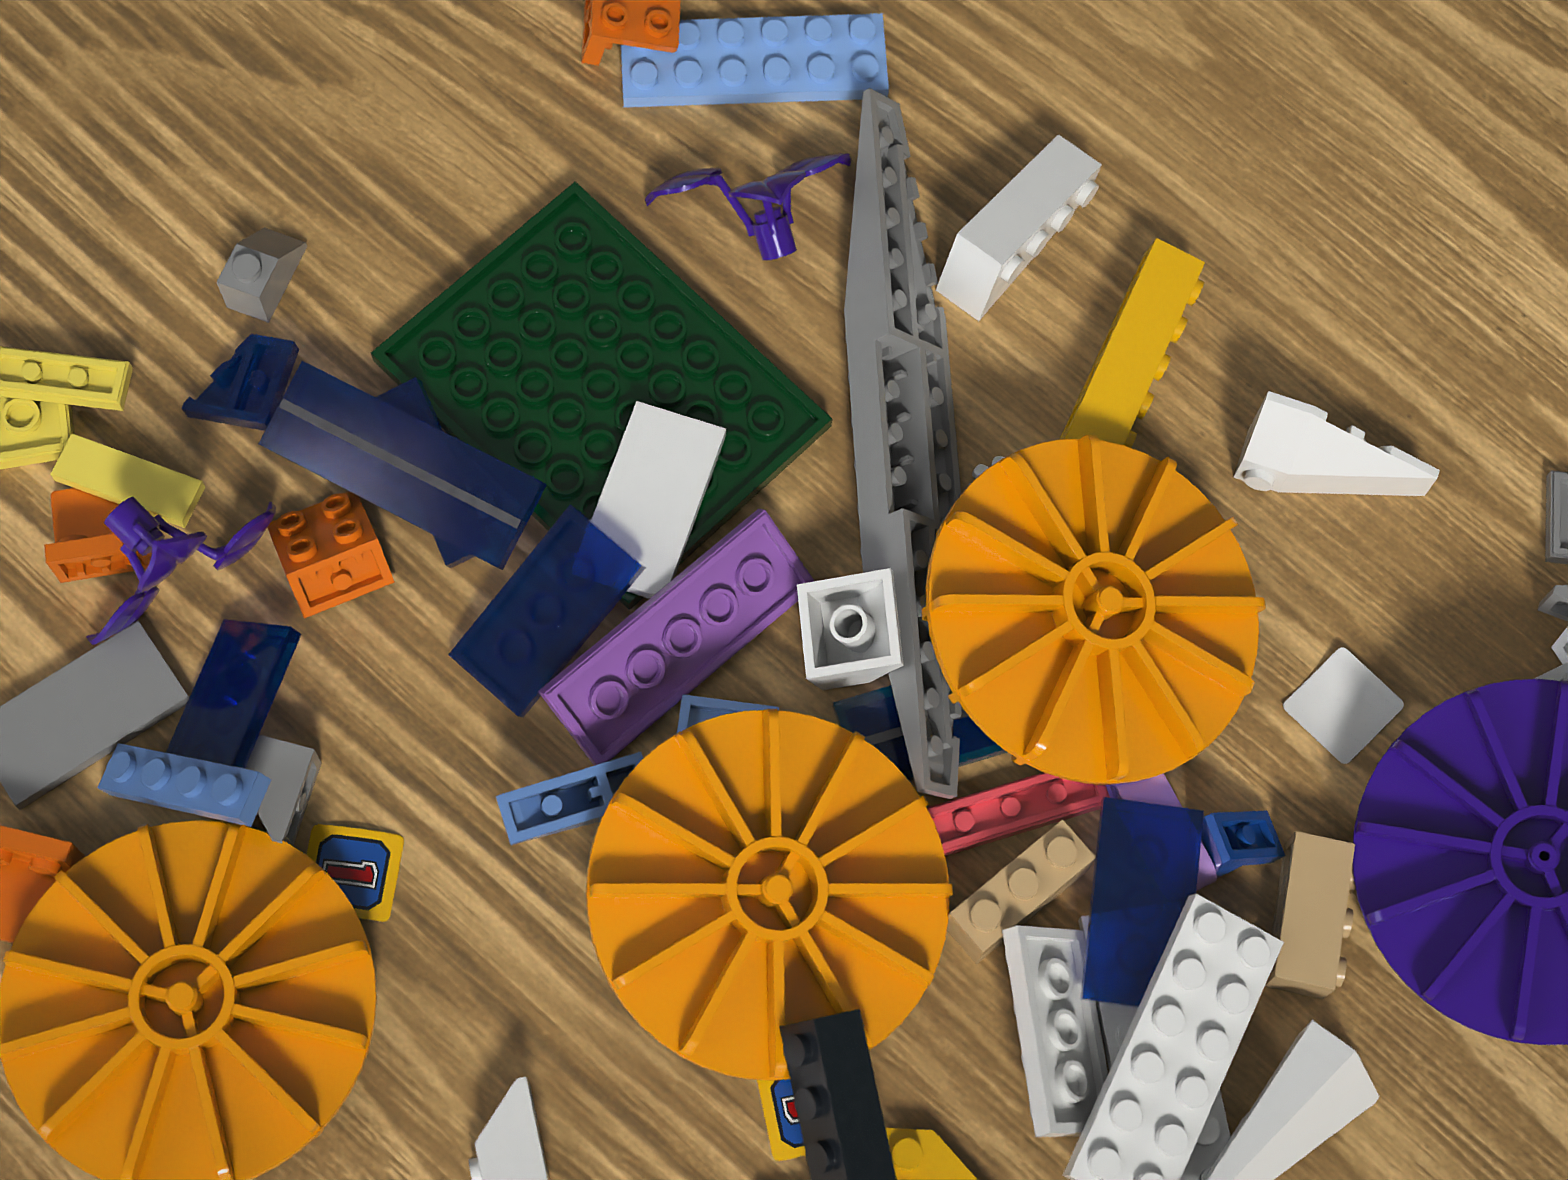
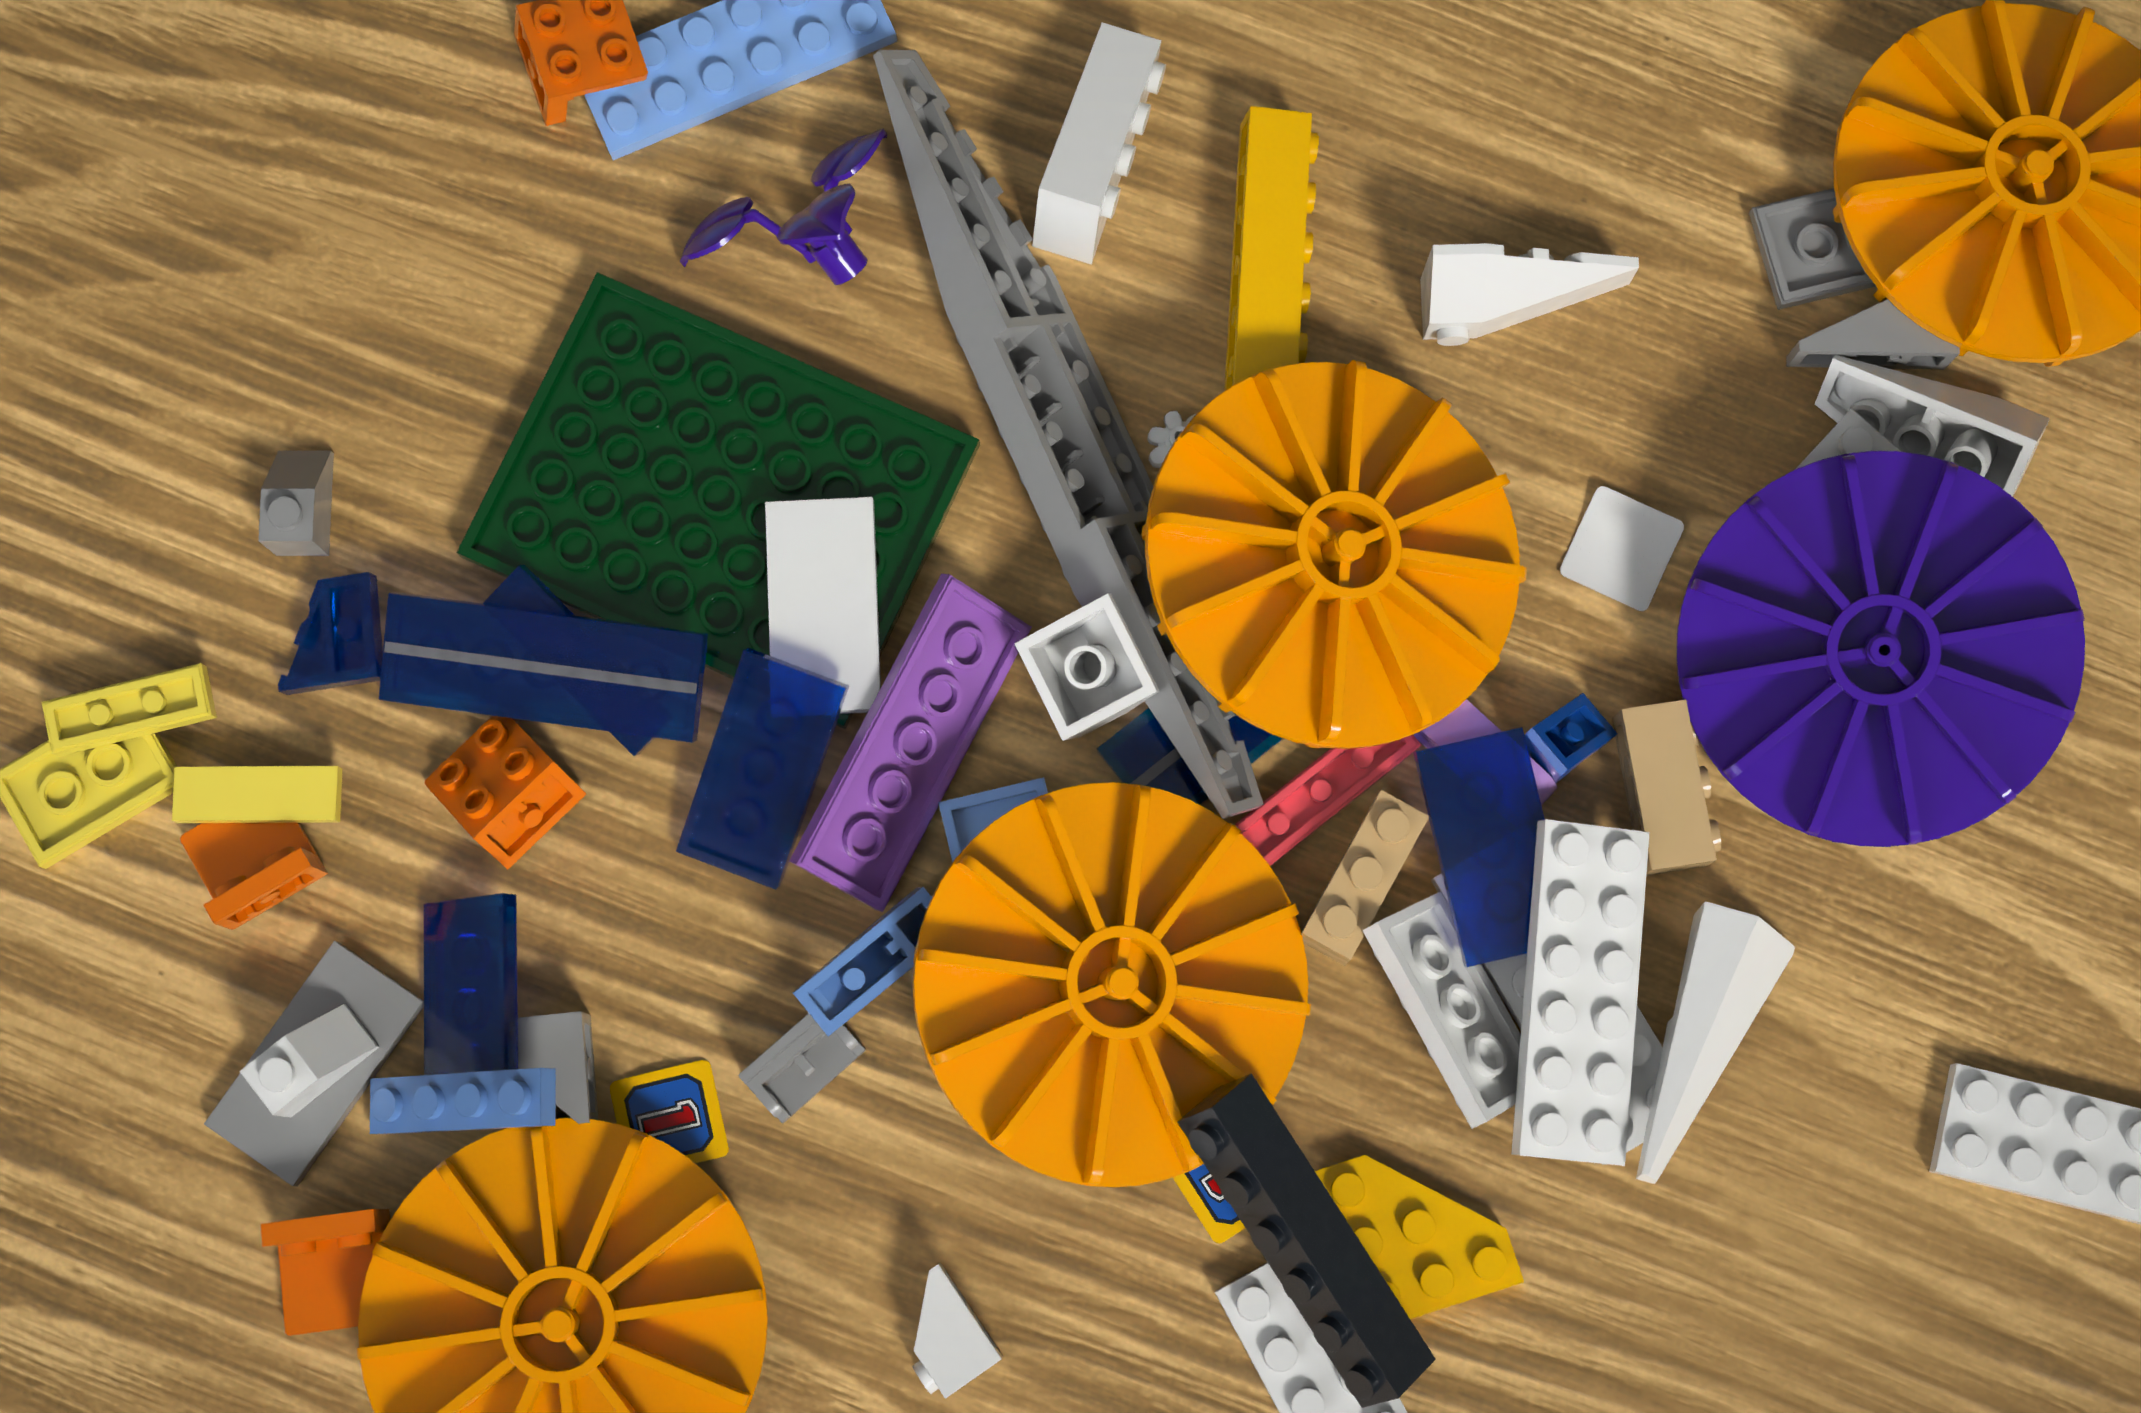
camera: 15 degrees left, 10 degrees up
(72, 705) = (308, 1061): none -> white slope
(142, 533) = (303, 856): dark purple plant -> none
(478, 867) = (800, 1066): none -> light grey hinge

